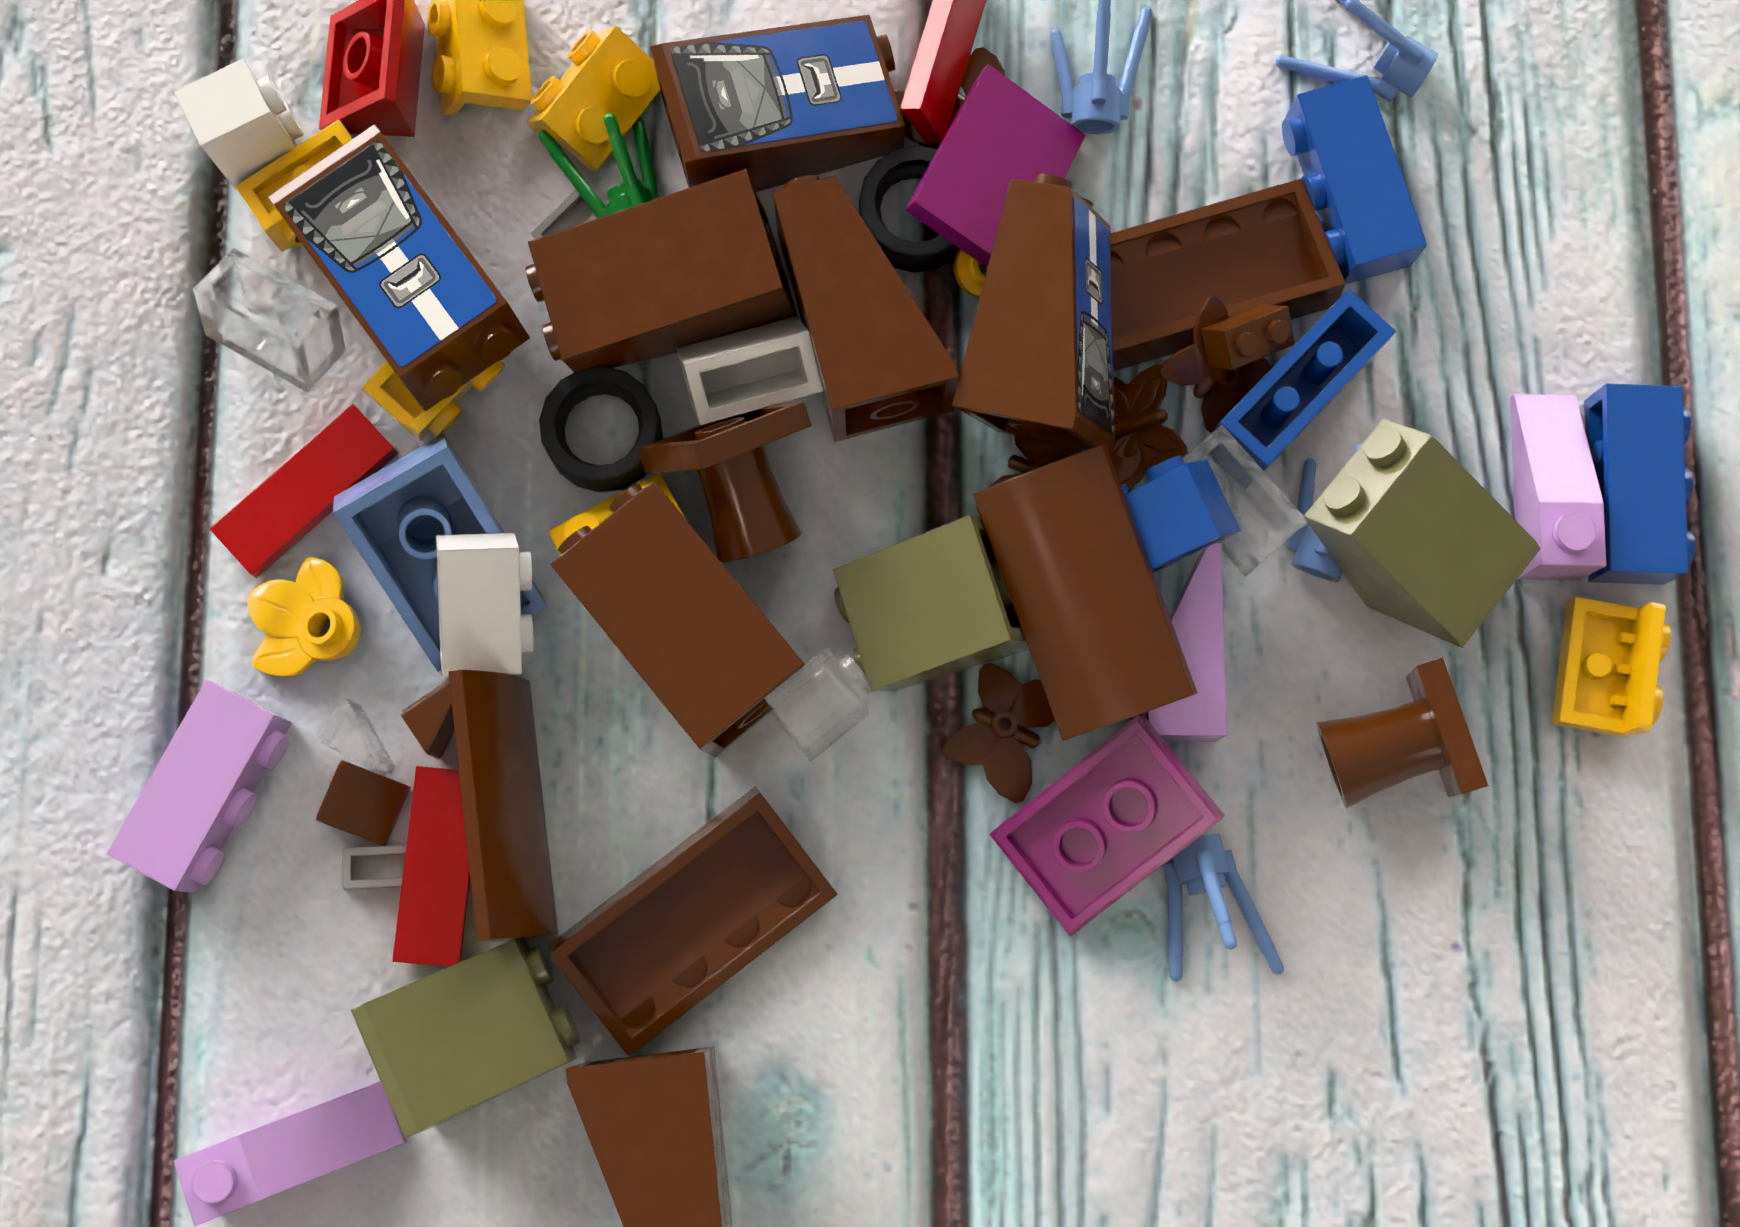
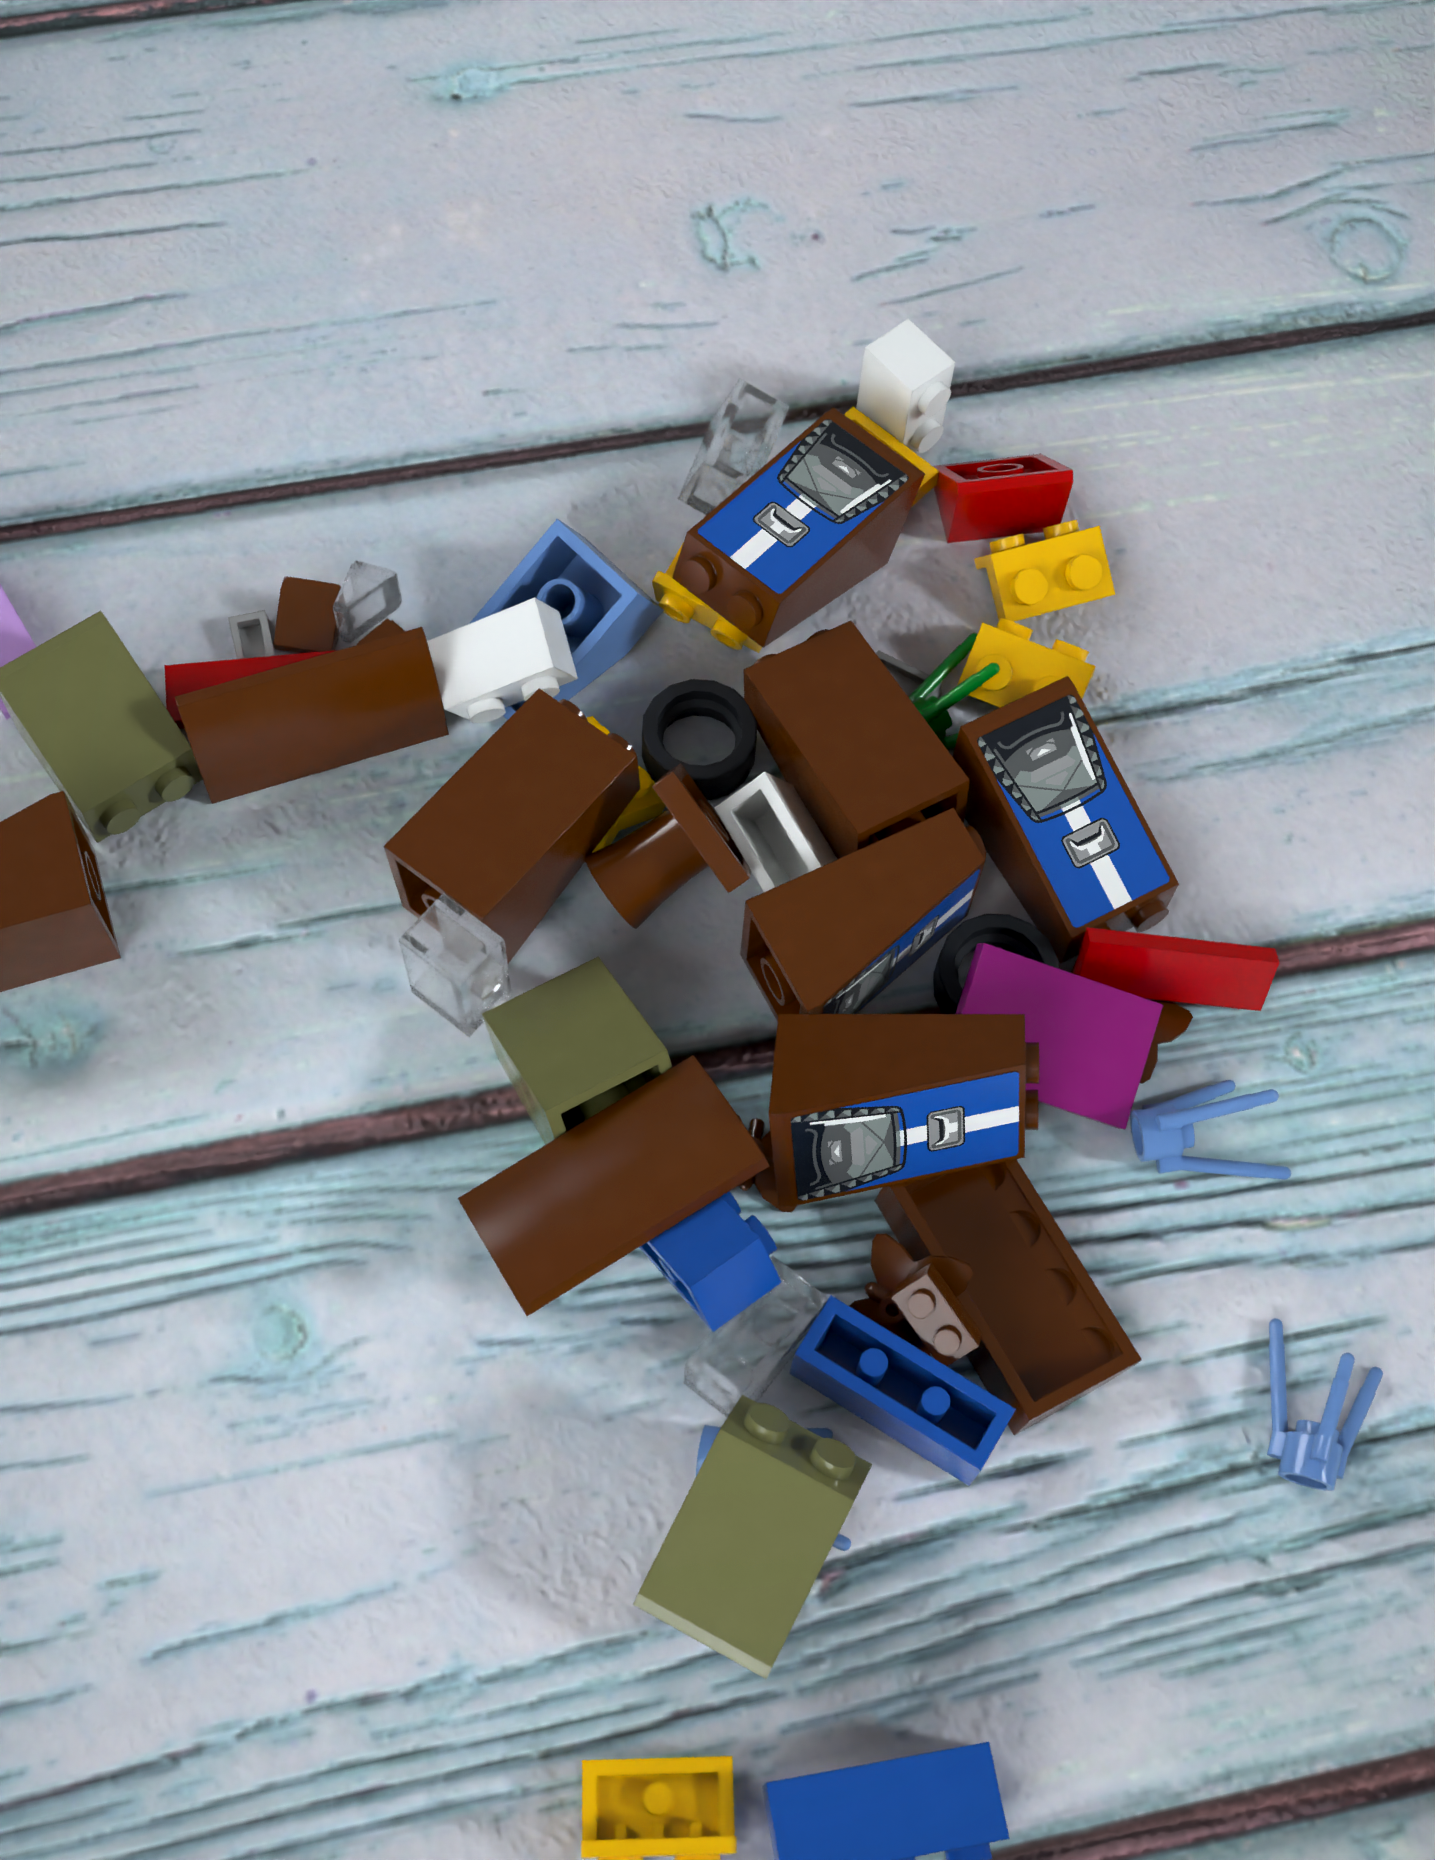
camera: 75 degrees right, 15 degrees down
(201, 789) = (301, 490): lavender brick -> none
(295, 616) = (469, 542): yellow plate -> none
(302, 491) = (626, 538): red tile -> none
(691, 921) = (237, 910): reddish brown slope -> none
(999, 730) = (462, 1159): reddish brown piece -> none
(1106, 824) = (385, 1273): magenta tile -> none
(1139, 427) = (812, 1241): reddish brown piece -> none
(1200, 631) = (580, 1333): lavender slope -> none
(1206, 869) = (355, 1384): medium blue plant -> none
(1354, 179) = (1154, 1415): blue brick -> none
(1404, 742) = (532, 1591): reddish brown plant -> none
(1556, 487) = (860, 1712): lavender slope -> none

